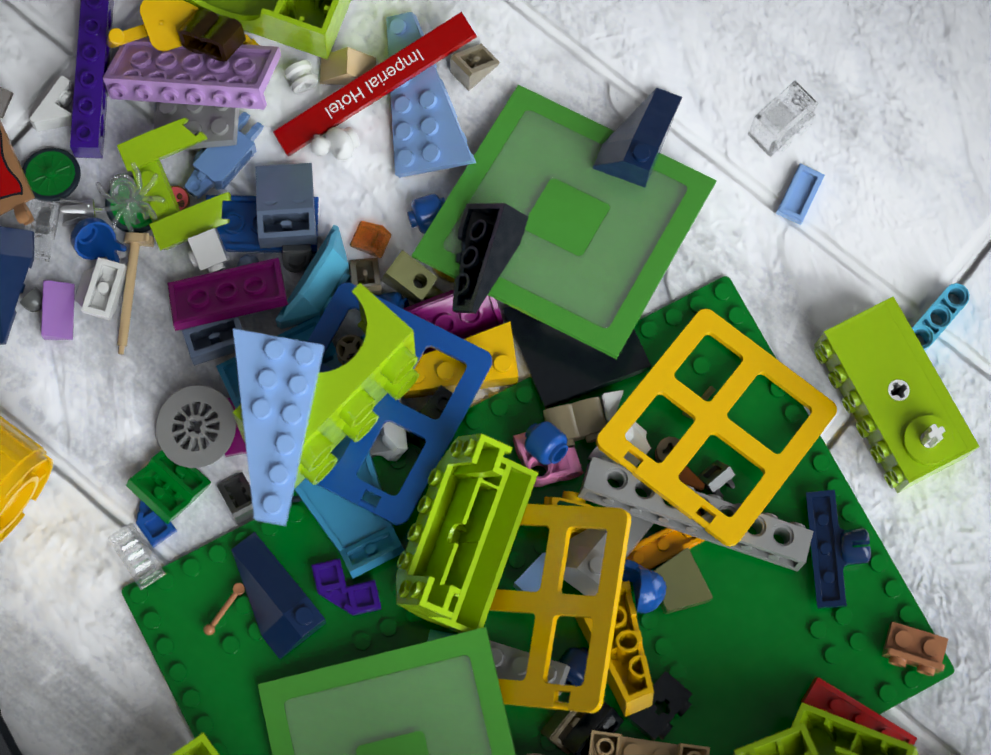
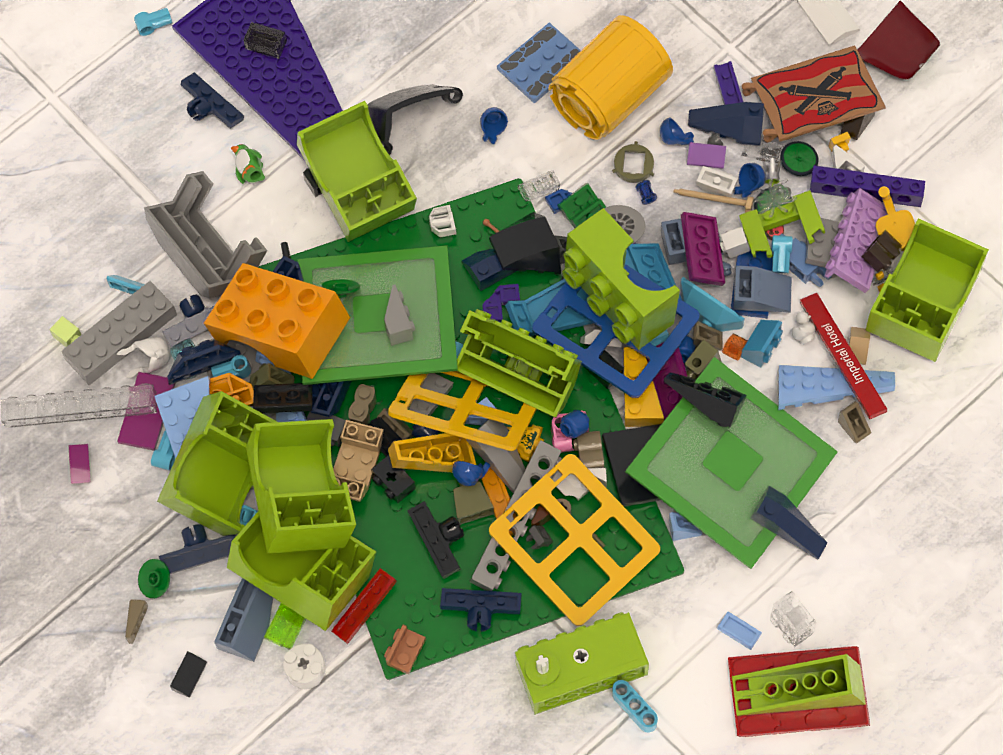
camera: 110 degrees right, 10 degrees down
(21, 116) = (841, 140): none -> yellow tile
(27, 362) = (672, 133): none -> blue piece
(31, 645) = (493, 123): none -> blue piece
(80, 394) = (637, 177): none -> olive piece
(130, 392) = (646, 192): none -> clear blue bush
(217, 697) = (442, 221): none -> white piece
(218, 178) = (781, 253): none -> medium azure piece
(246, 560) = (527, 246): none -> black wedge
(276, 402) = (604, 231): light blue wing -> none
(296, 257) = (726, 295): dark grey tile -> none
(301, 76) = (854, 313): white wheel -> none
(366, 195) = (762, 342): none -> dark azure slope
(417, 733) = (396, 319): none -> light grey slope
(424, 211) = (750, 375): blue head -> none
(670, 287) = (682, 528): none -> light blue slope
(740, 625) = (438, 537): none -> black plate
(873, 110) = (798, 691): none -> piece

